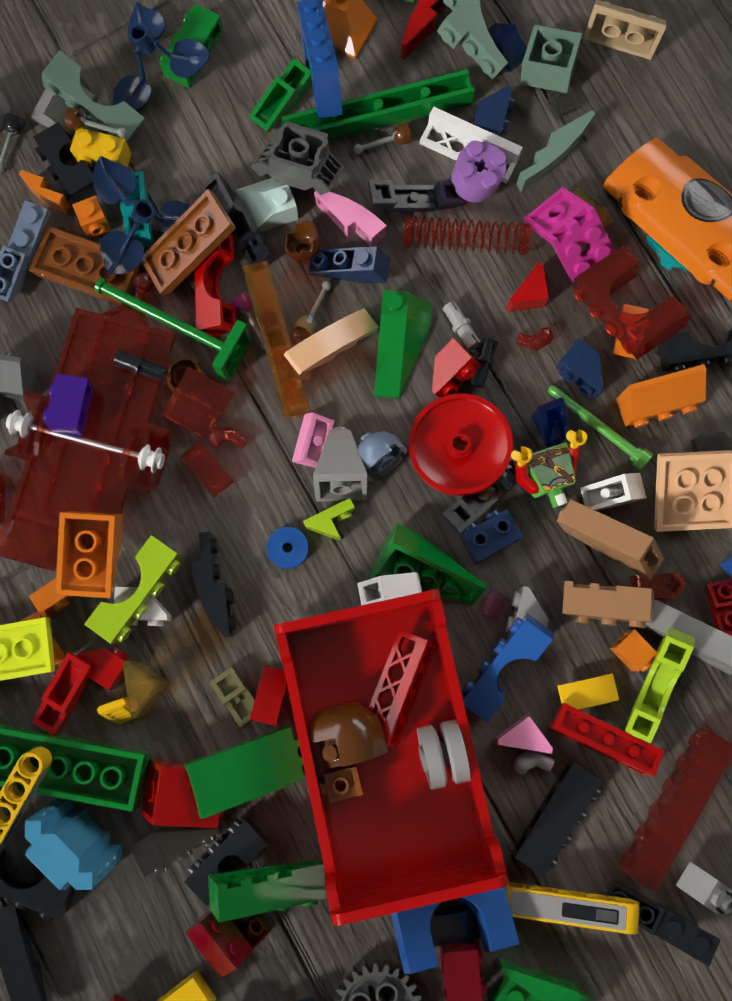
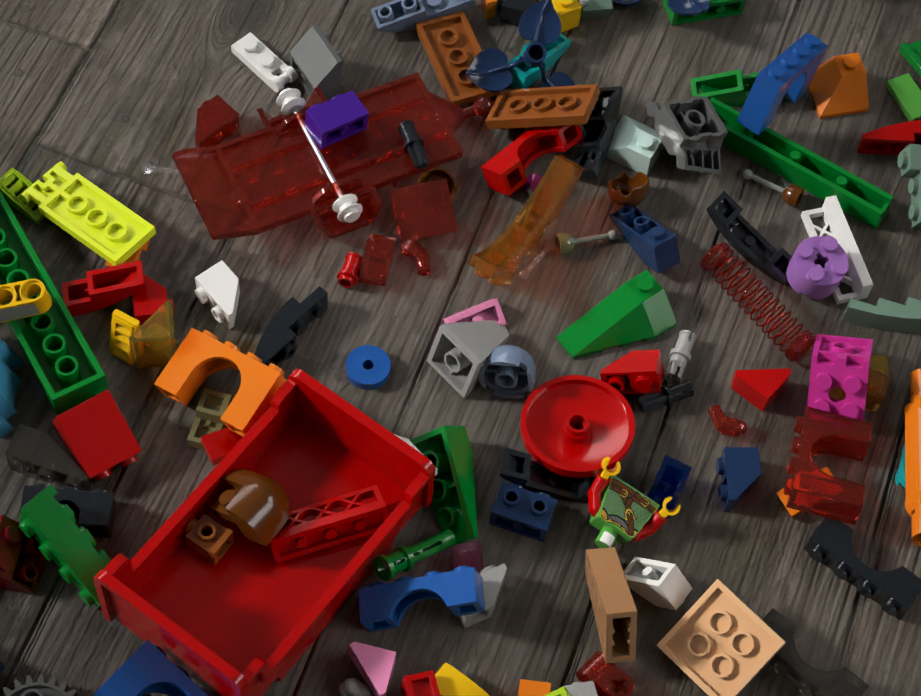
camera: 45 degrees right, 20 degrees down
(47, 602) = (173, 227): orange brick -> none
(88, 553) = (234, 213): orange slope -> none
(92, 217) = (500, 32): orange brick -> none
(114, 620) = (198, 275): lime arch -> none
(199, 496) = (348, 275): none -> red pin
(230, 352) = (485, 201): green tile -> none
(245, 771) = (149, 460): green piece -> none
(249, 647) = (202, 356): none -> orange arch
(323, 521) = (417, 374): lime slope -> none
(330, 341) = (567, 263): light nougat slope -> none
(351, 217) = (685, 210): bright pink slope -> none
(443, 754) = (298, 587): light grey wheel -> none
(465, 650) = (395, 562): none -> green pin
(493, 110) = (882, 245): dark blue slope -> none
(608, 604) = (550, 640): medium nougat wedge -> none
(638, 456) = (707, 576): bright green piece -> none
(663, 397) = (776, 553): orange slope -> none

